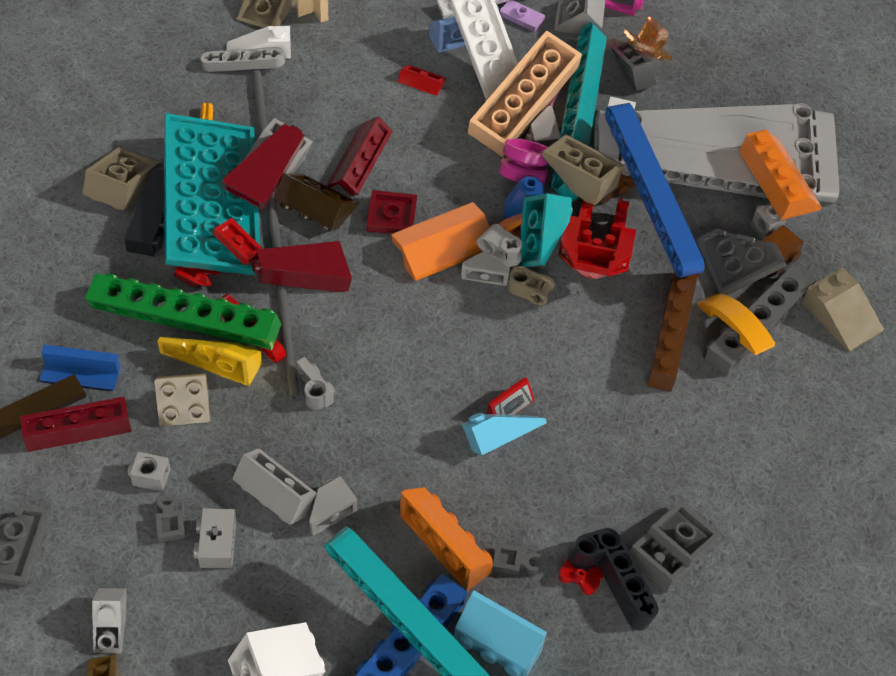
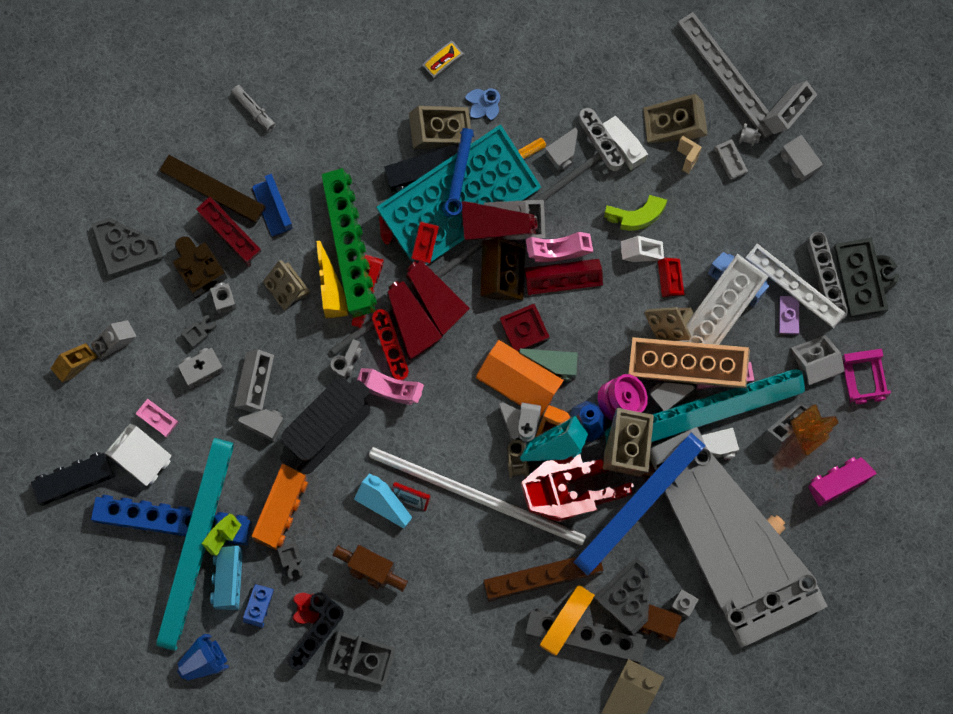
camera: 65 degrees right, 20 degrees up
(50, 141) = (442, 59): none -> slope
(92, 478) = (197, 265): none -> dark brown brick
(126, 134) = (483, 106): none -> medium blue plate
(219, 191) = (459, 173): none -> blue piece
(230, 92) = (562, 150): none -> light grey slope
(244, 619) = (157, 418): none -> bright pink plate
(313, 300) = (413, 323): none -> dark red slope
(324, 340) = (388, 345): none -> red beam
(331, 140) = (559, 249): none -> bright pink arch
(344, 75) = (639, 218): none -> lime arch
(366, 366) = (390, 388): none -> bright pink arch
(378, 84) = (641, 249): none -> white slope
(380, 432) = (324, 425): none -> black piece
(443, 603) = (223, 531): none -> lime slope
(451, 196) = (558, 362): none -> sand green slope
(472, 90) = (669, 323): none -> dark tan bracket
(542, 346) = (477, 496): none -> white axle
(559, 627) = (258, 605): none -> blue plate
(574, 474) = (370, 566): none -> reddish brown brick
(712, 47) = (841, 480): none -> dark pink slope
(778, 175) = (720, 593): orange slope -> none

